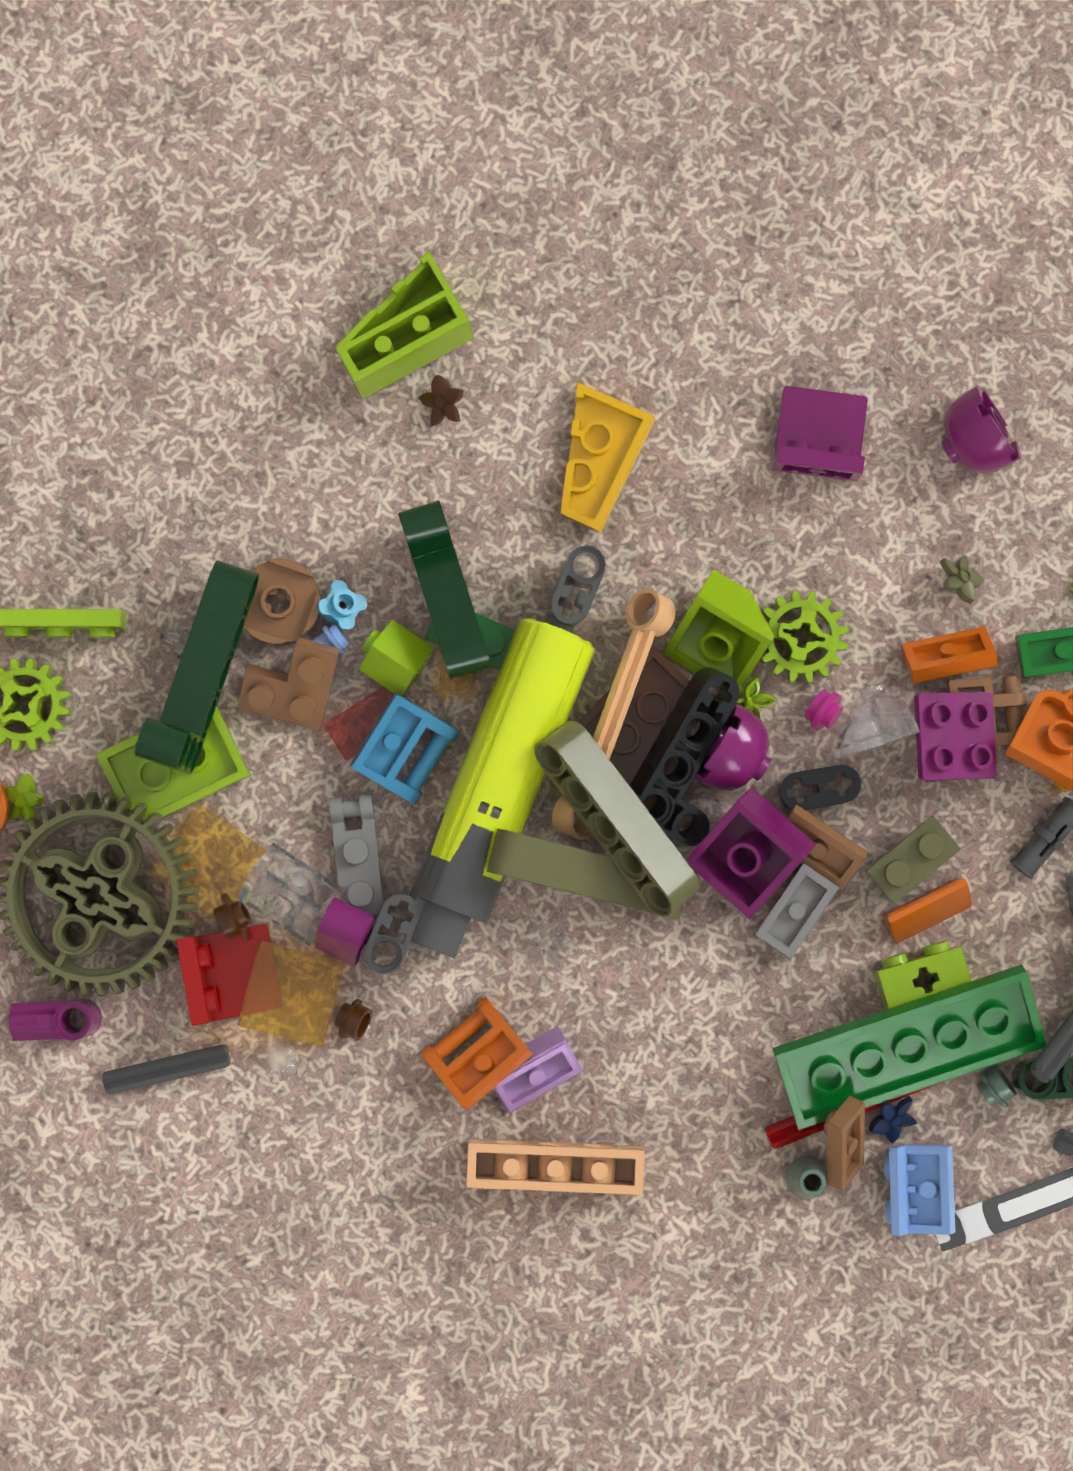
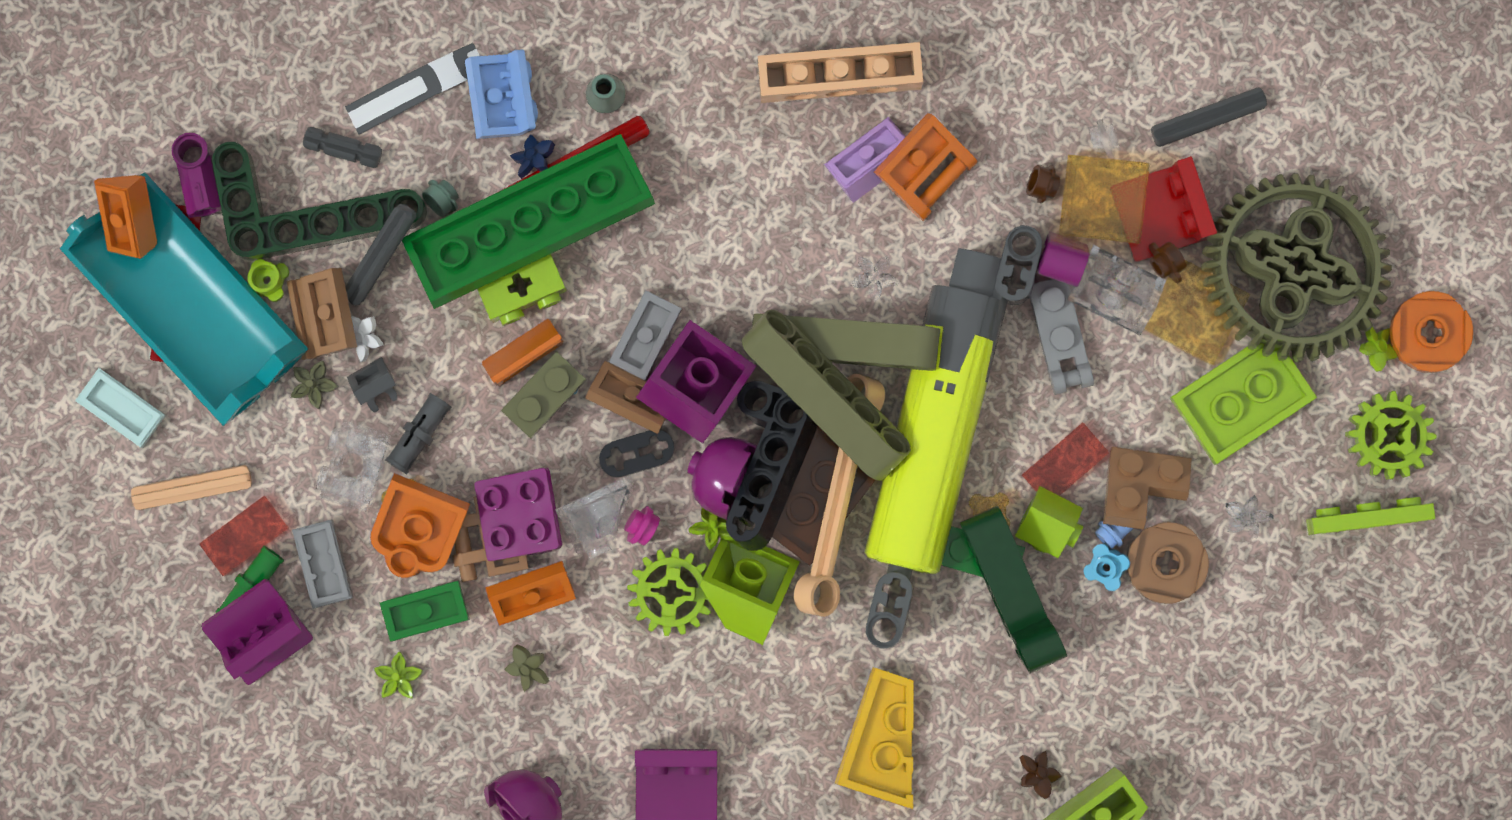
camera: 170 degrees right, 0 degrees up
(51, 1020) = (1321, 147): magenta piece -> none
(201, 671) = (1242, 419): dark green beam -> none
(393, 741) = (1042, 442): dark azure plate -> none
(845, 1142) = (576, 127): medium nougat plate -> none

